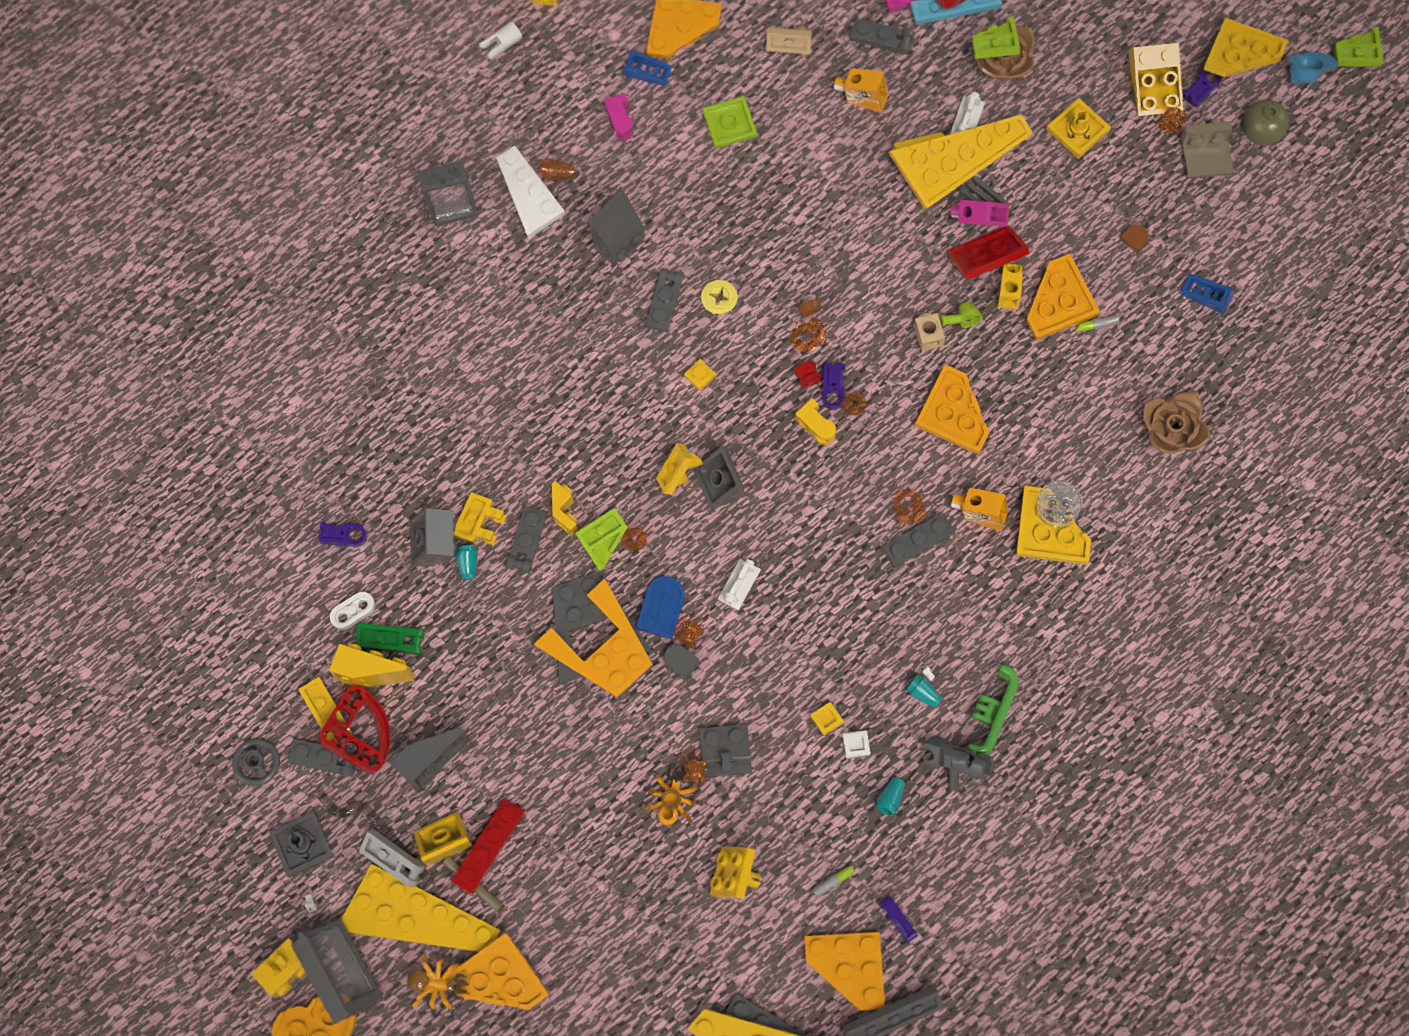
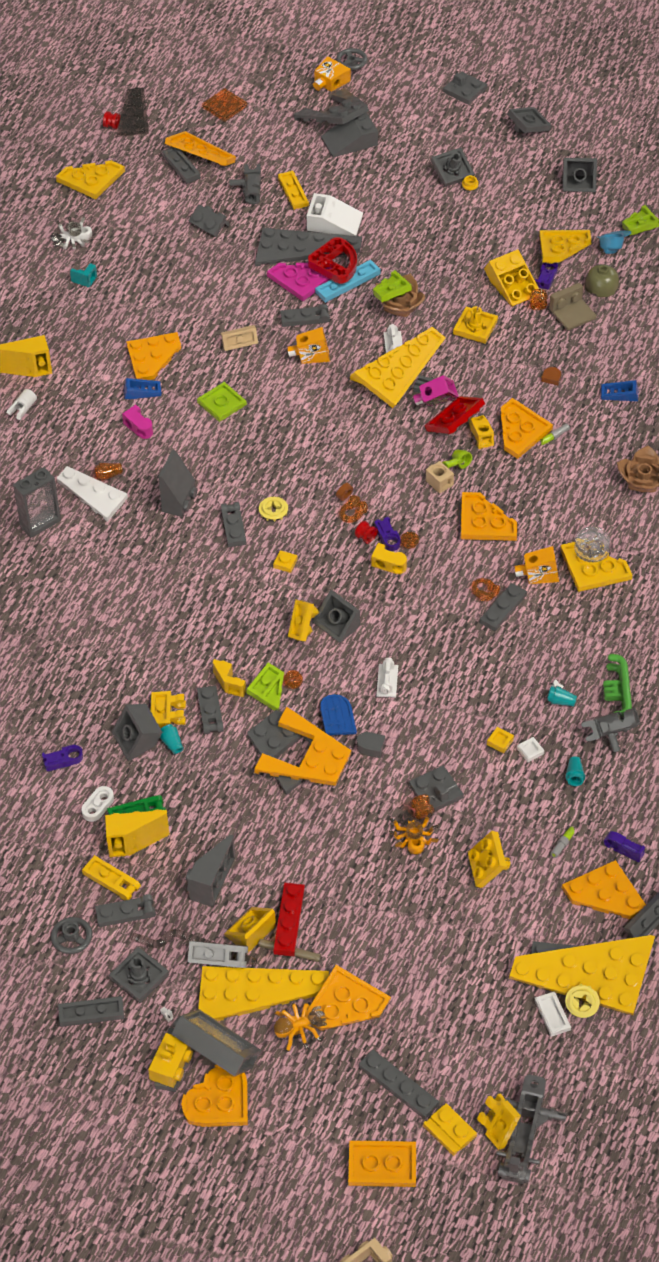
camera: 30 degrees left, 20 degrees down
(233, 866) = (91, 1011): none -> dark grey plate
(340, 728) = (141, 857): red beam -> none
(689, 633) = (368, 722): clear orange wheel -> none

